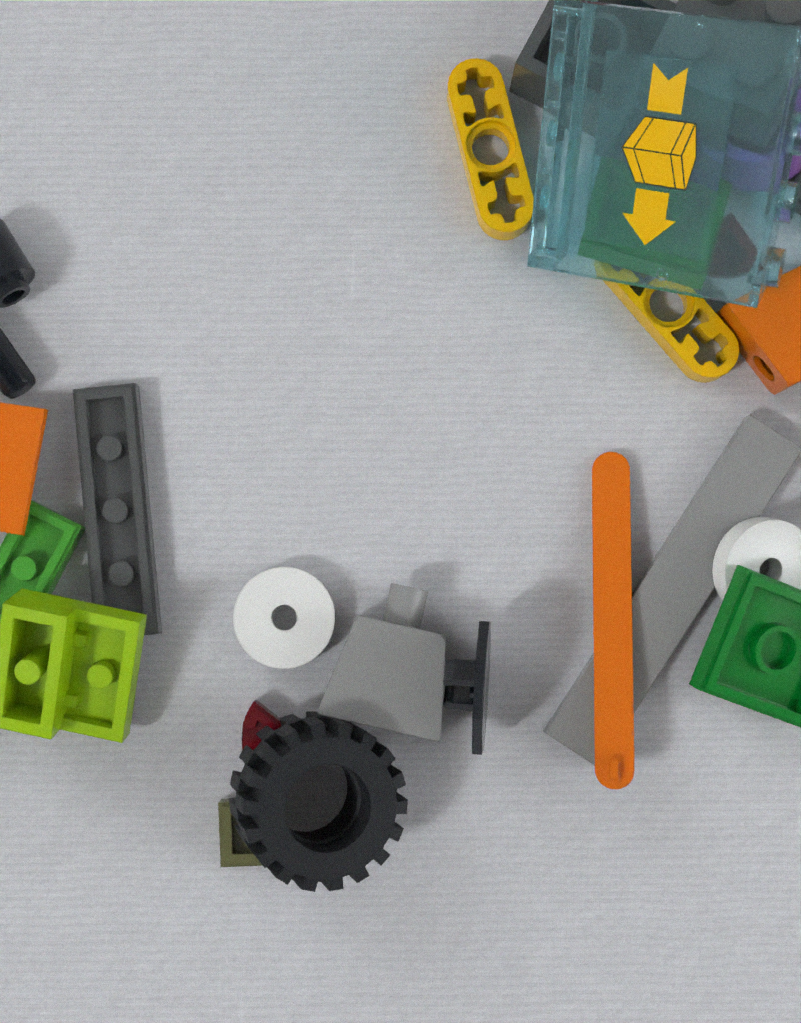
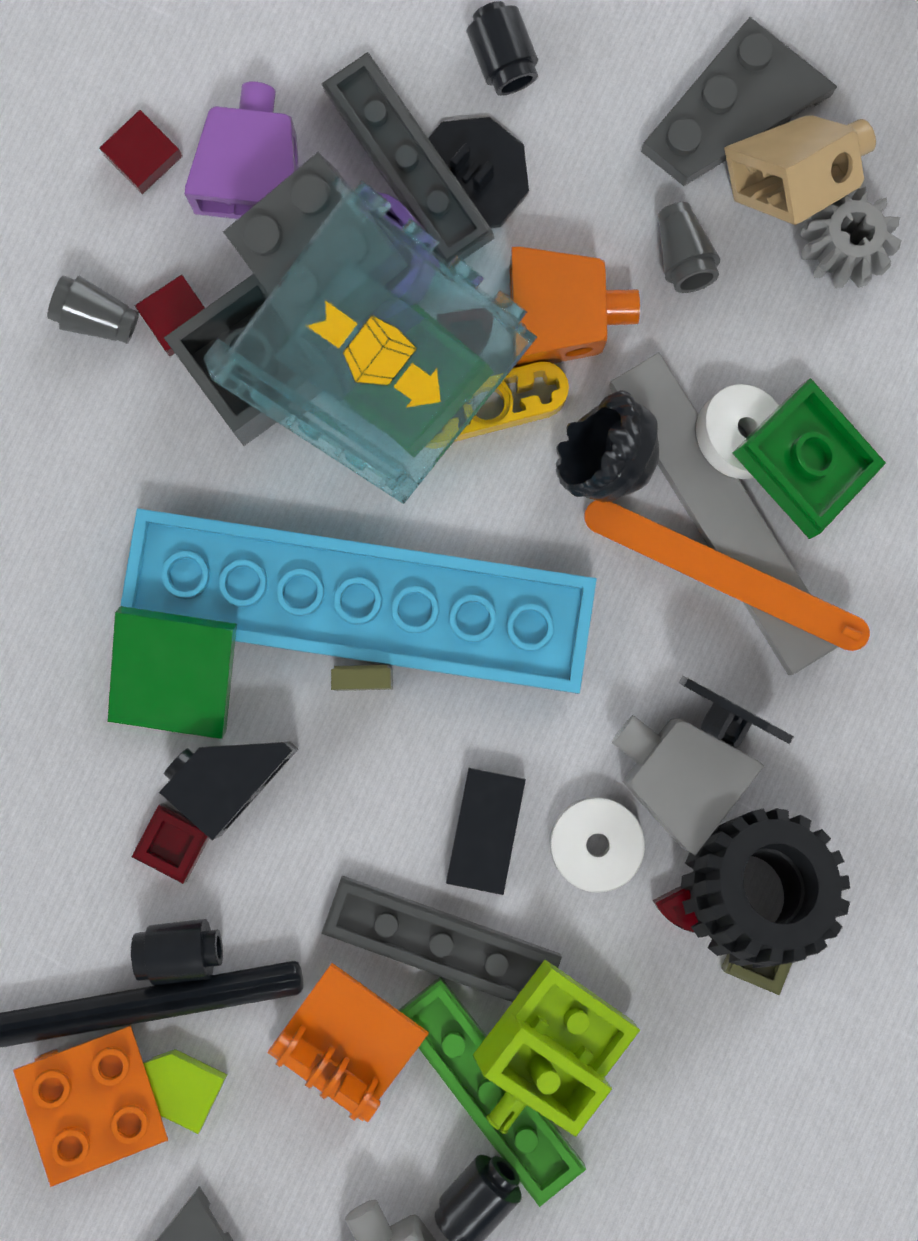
camera: 65 degrees left, 0 degrees up
(93, 208) = (171, 844): none -> dark red tile
(172, 225) = (222, 781): none -> black slope
(246, 502) = (485, 831): none -> black tile
(255, 124) = (171, 672): none -> green tile
(337, 309) = (361, 678): none -> olive tile
(411, 272) = (365, 600): none -> medium azure plate
(495, 103) = (247, 463): yellow beam -> none
(680, 443) = (609, 450): none -> black hair

